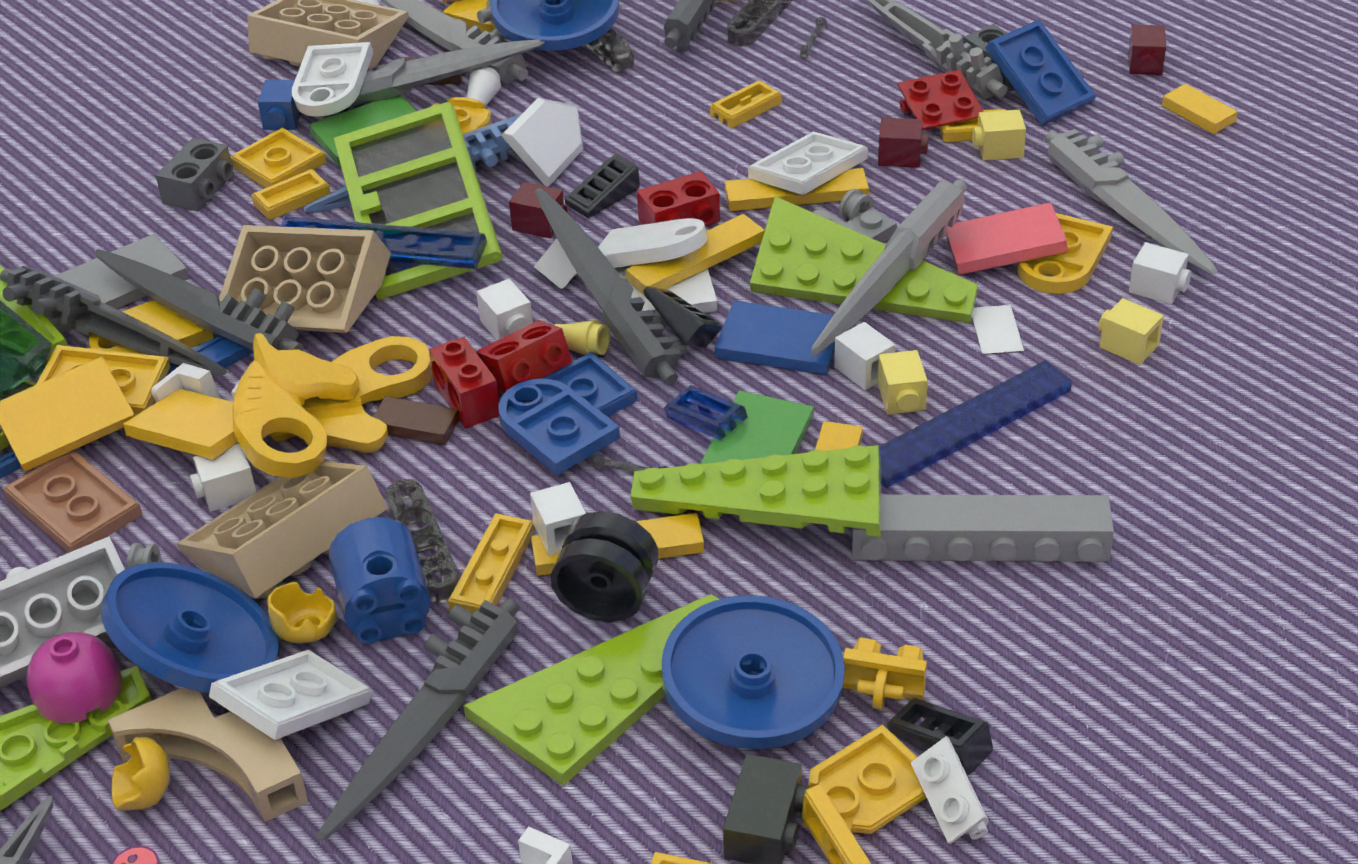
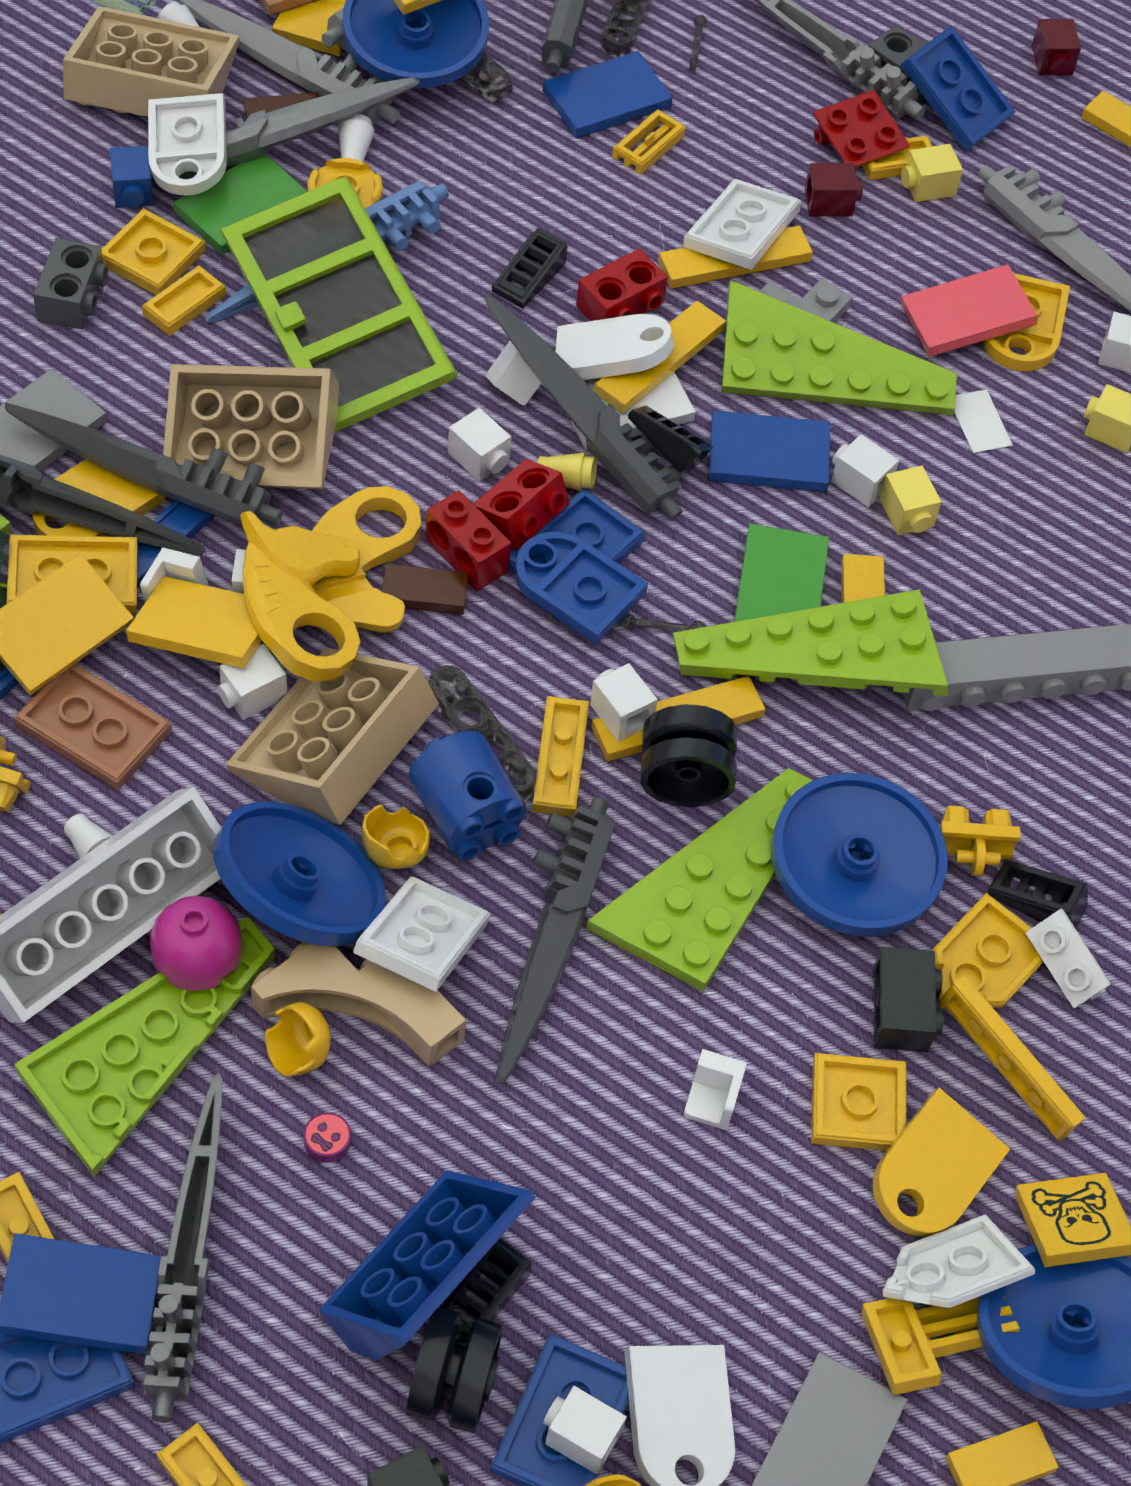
camera: 20 degrees left, 15 degrees up
(140, 555) = (207, 790): light grey bush -> none
(412, 243) = (353, 368): clear blue tile -> none
(527, 212) = (467, 309): dark red brick -> none
(546, 137) = (455, 209): white tile -> none
(700, 416) = (719, 558): clear blue tile -> none
(718, 69) = (607, 94): none -> blue tile
(854, 204) = (806, 277): light grey bush -> none
(902, 252) = (877, 348): light grey piece -> none
(970, 421) = (986, 536): clear blue tile -> none

